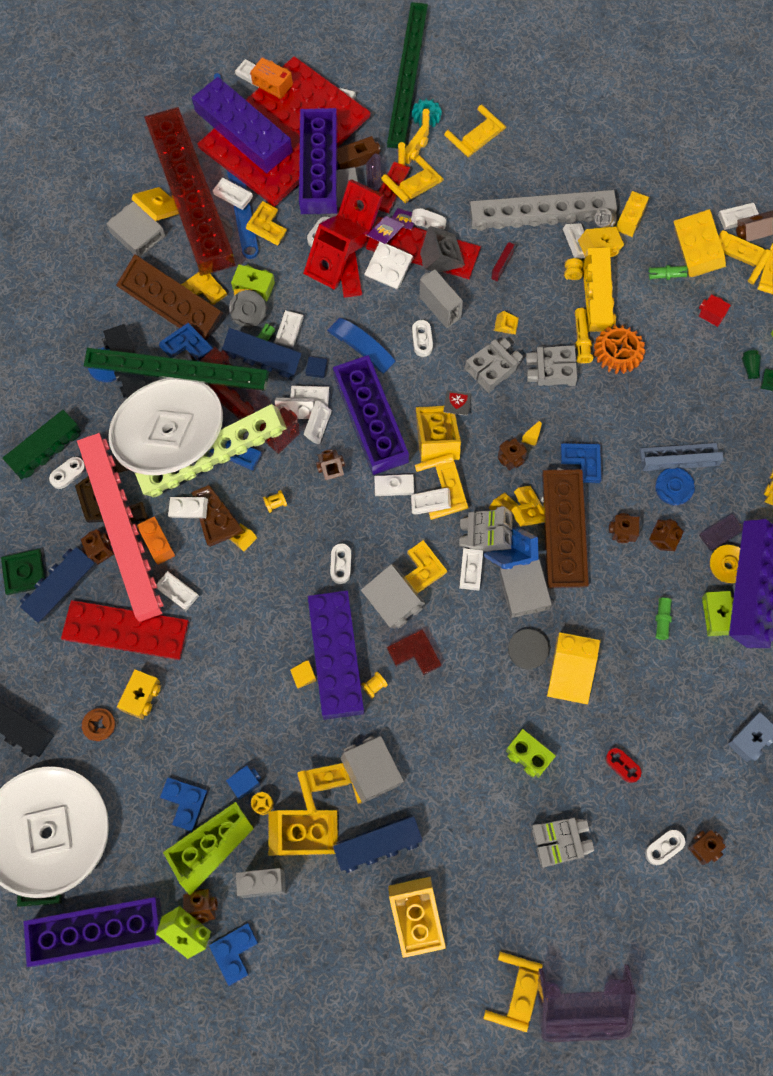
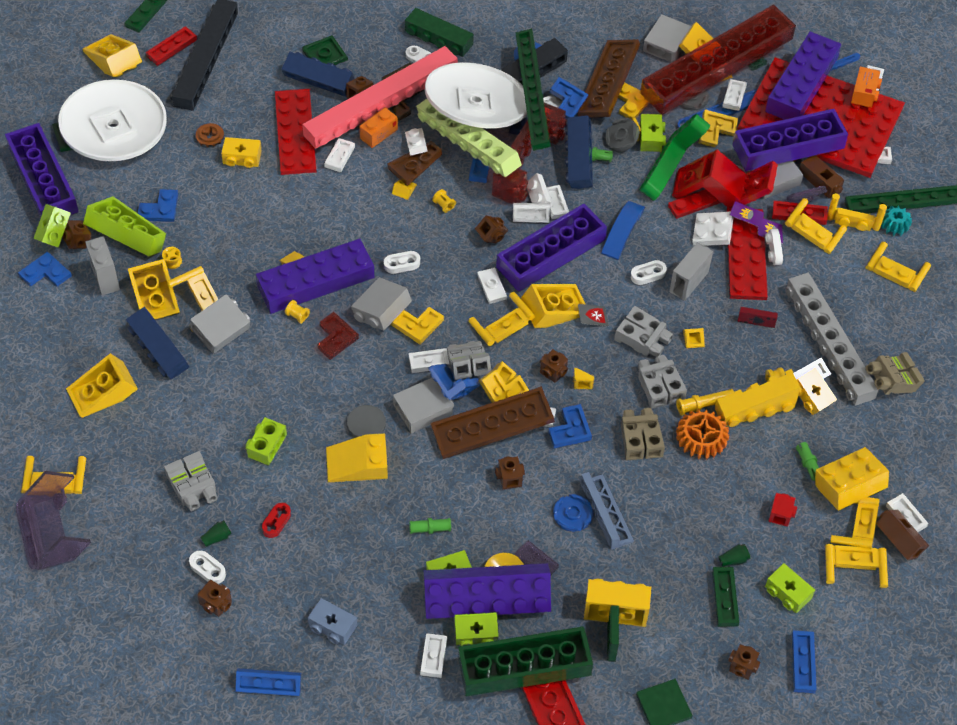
camera: 70 degrees right, 15 degrees down
(244, 782) = (186, 240): blue brick -> none
(289, 329) = (615, 171): white plate -> none
(292, 276) = (672, 154): none -> green beam
(316, 367) = (588, 199): dark blue tile -> none
(431, 501) = (484, 313): white plate -> none
(440, 251) = (742, 259): flat silver slope -> none
(598, 173) = (895, 374): none -> dark tan hips
(608, 400) = (642, 435): none -> dark tan hips
(609, 218) = (838, 384): flat silver wheel -> none
(627, 828) = (216, 533): none -> dark green cone
(632, 213) = (861, 414): yellow brick -> none
(666, 535) = (515, 509): reddish brown brick -> none

